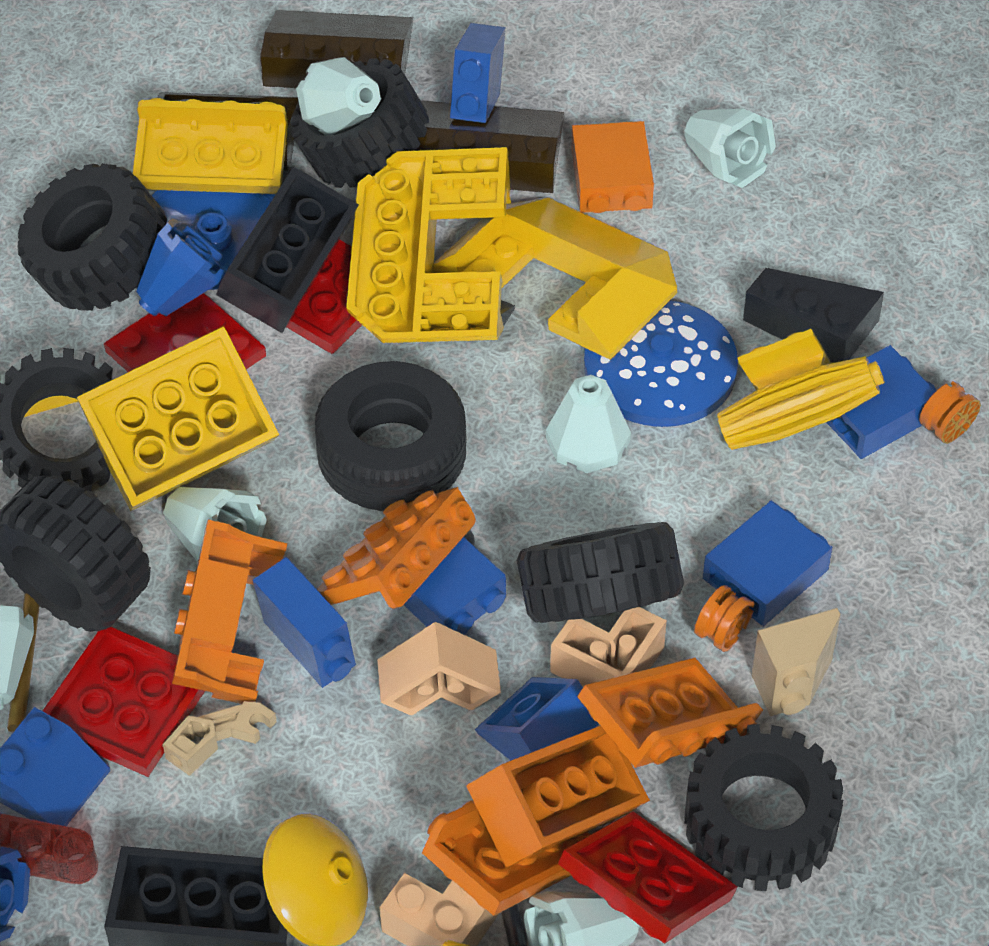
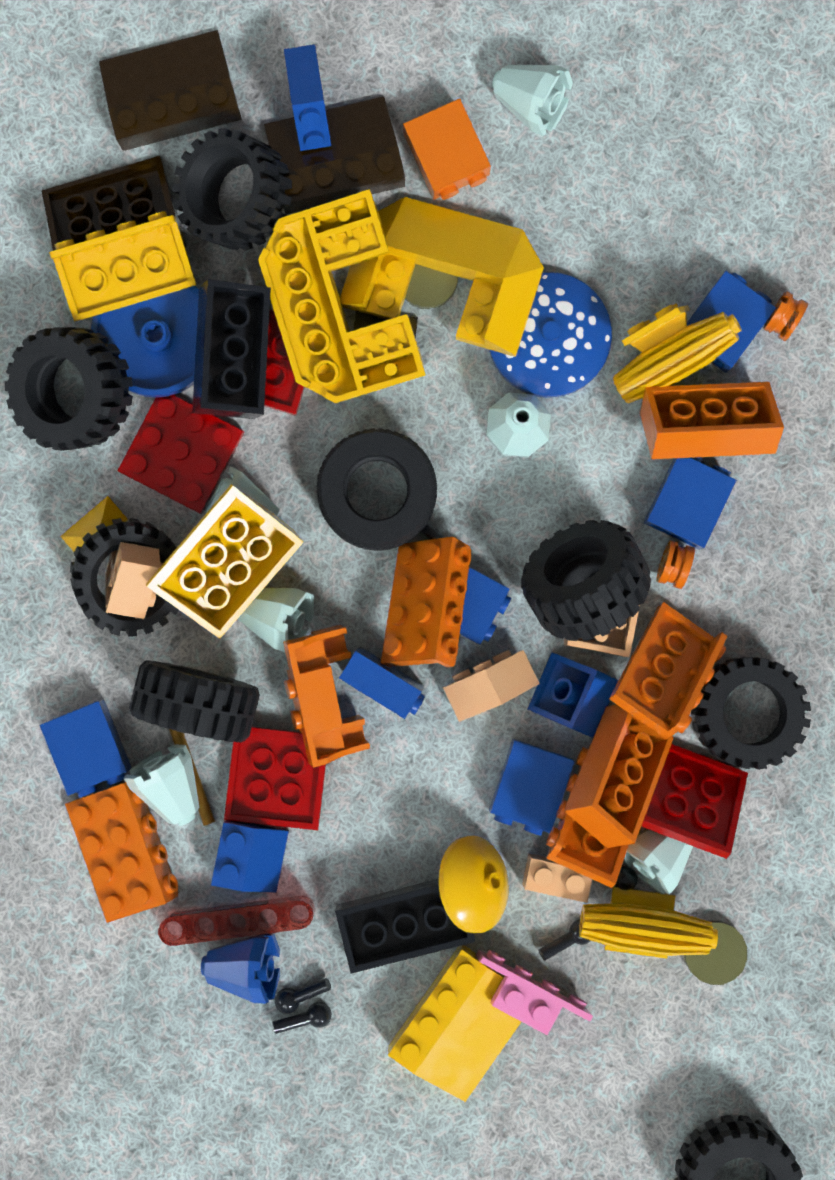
camera: 25 degrees left, 35 degrees up
(57, 418) = (127, 577): none -> light nougat brick
(178, 269) = (157, 399): blue cone -> none
(212, 727) = (358, 768): tan piece -> none
(337, 96) = (212, 182): light aqua cone -> none
(426, 791) = (531, 787): none -> blue brick
(541, 283) = (430, 288): none -> olive tile
(793, 660) = (741, 591): tan slope -> none
(795, 303) = (655, 252): black wedge -> none
(819, 476) = (711, 420): none -> orange brick

